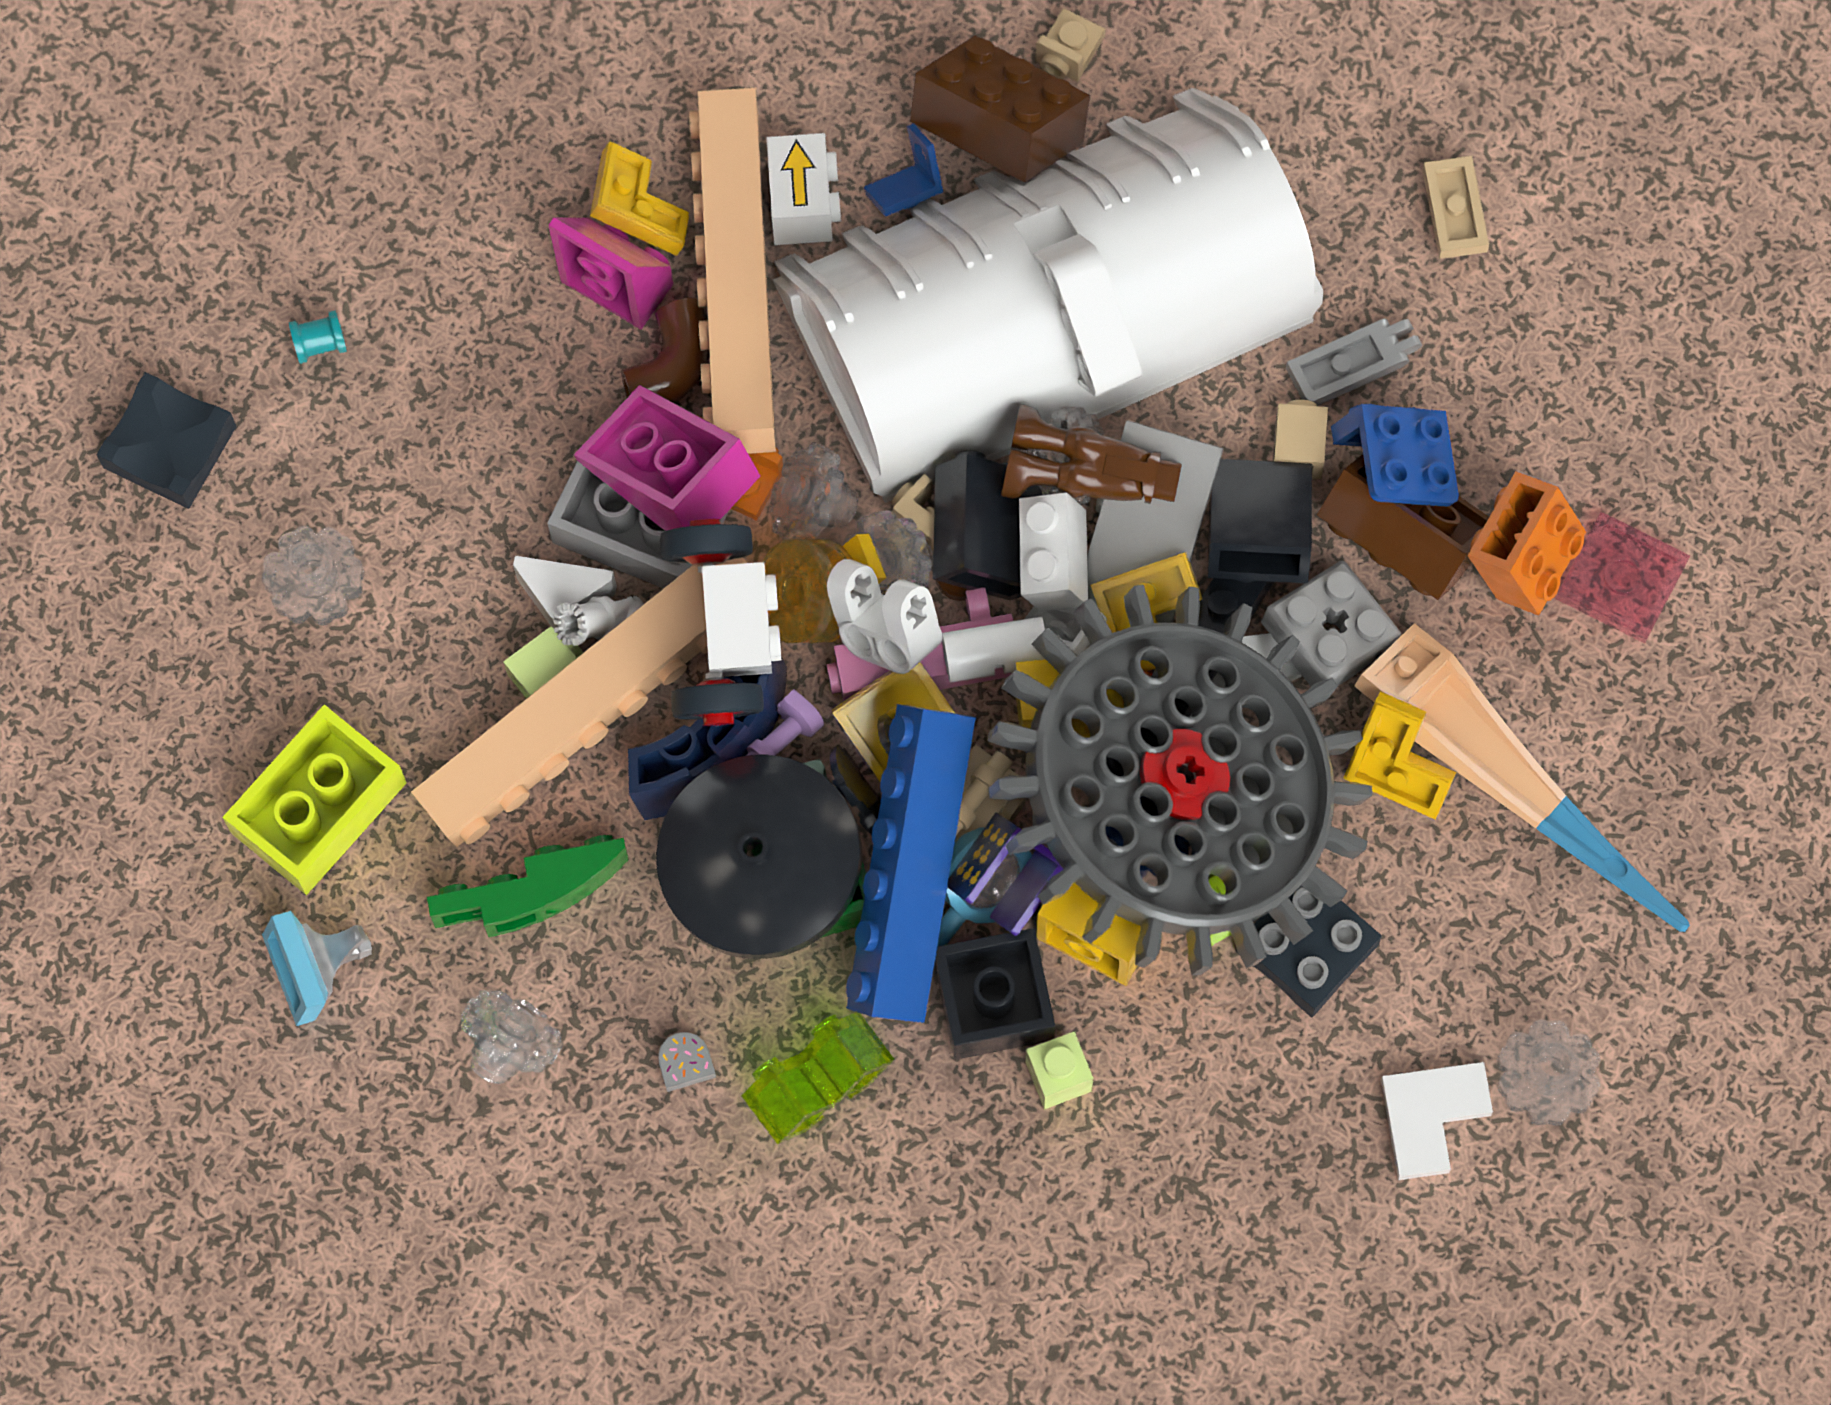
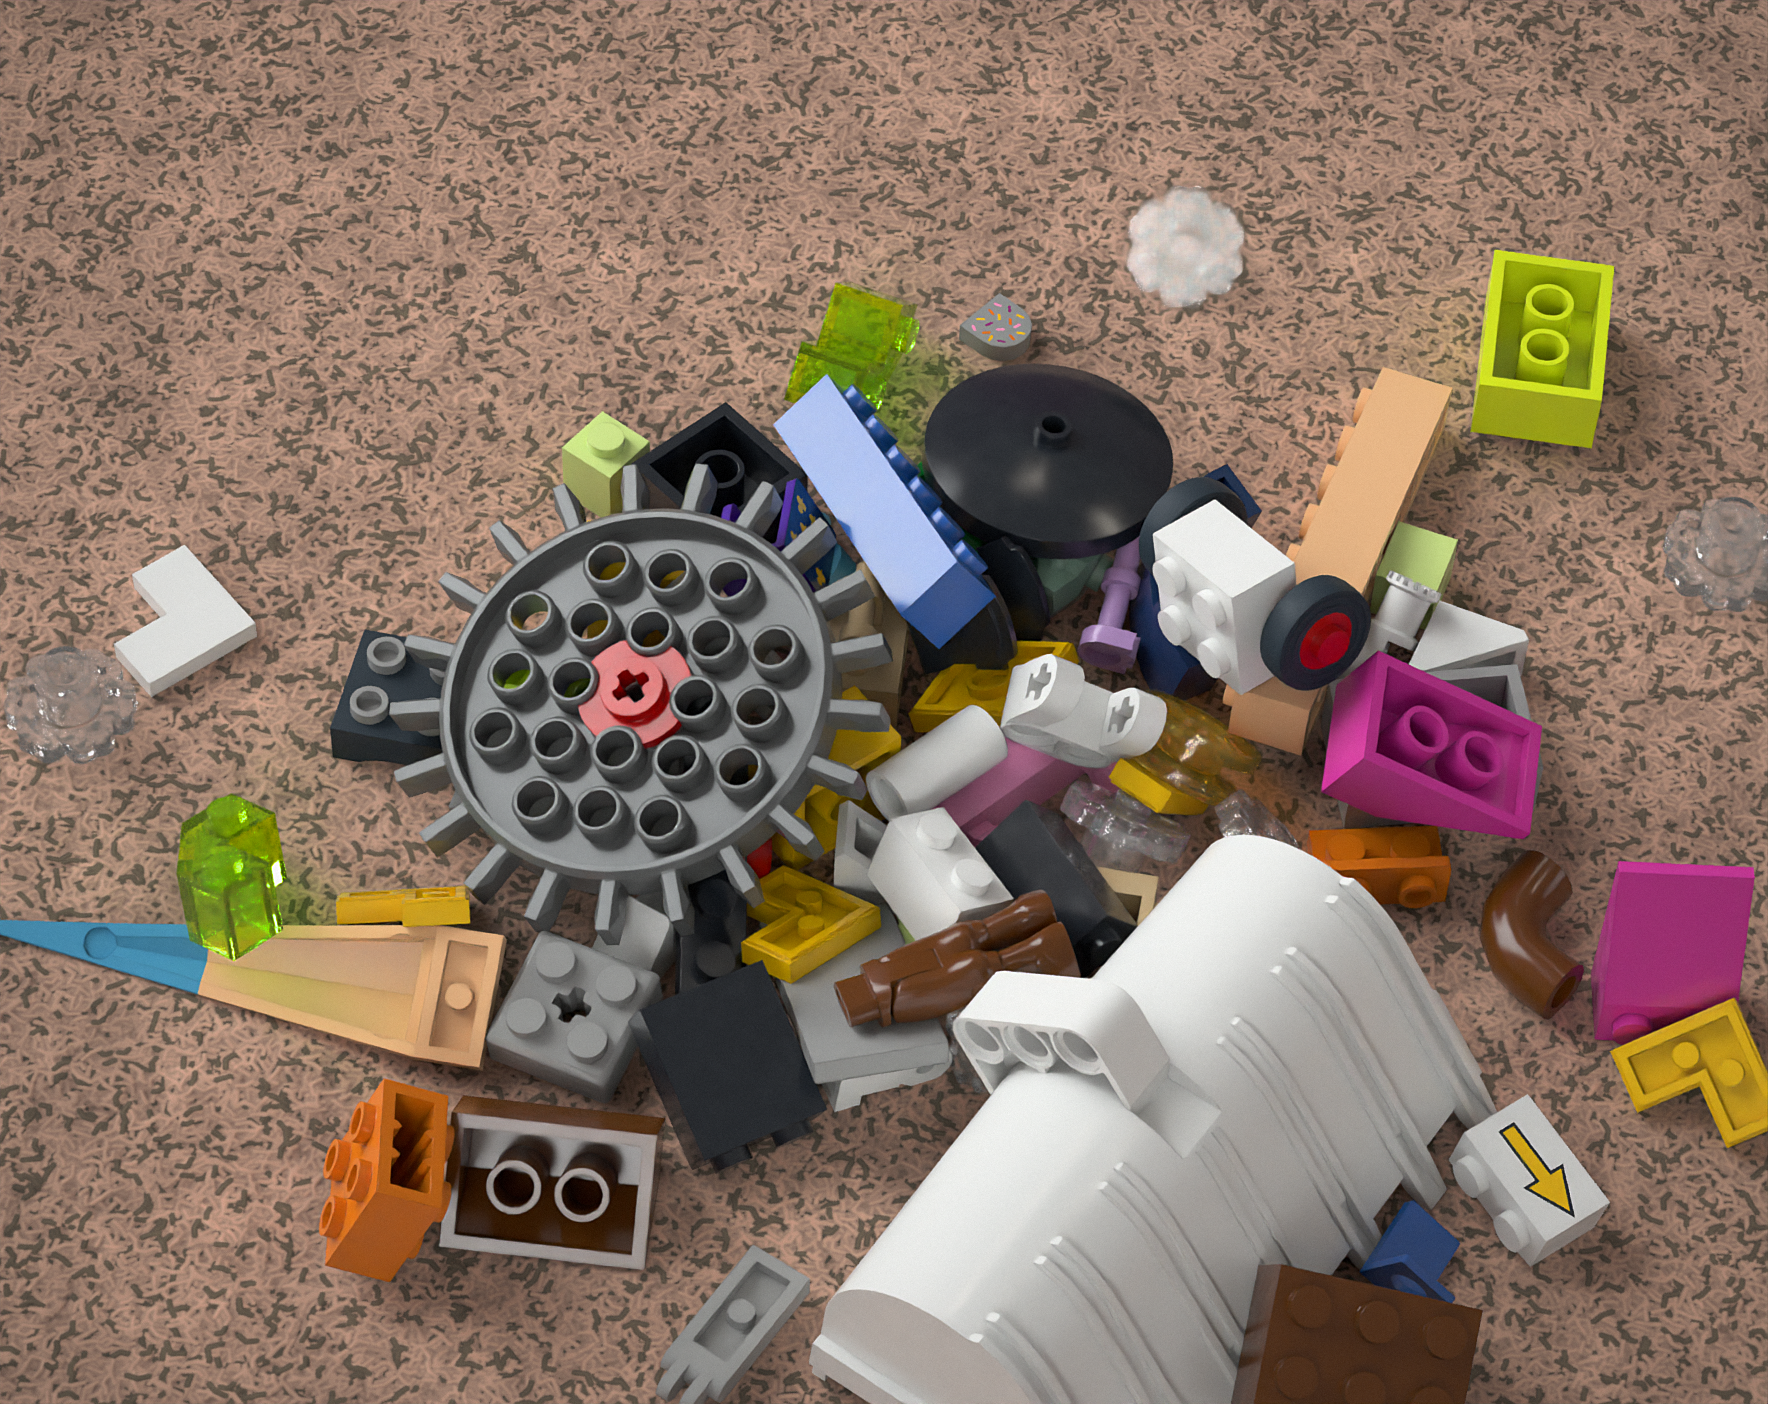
camera: 145 degrees right, 20 degrees down
(309, 961) = (1432, 233): medium azure piece -> none
(553, 884) = (1258, 384): green slope -> none
(735, 267) = (1534, 1039): light nougat brick -> none
(1301, 434) = (738, 1200): tan brick -> none
(1403, 453) = (601, 1206): blue bracket -> none
(1515, 858) = (229, 876): none -> clear neon green brick
(1622, 577) = (253, 1256): clear pink tile -> none

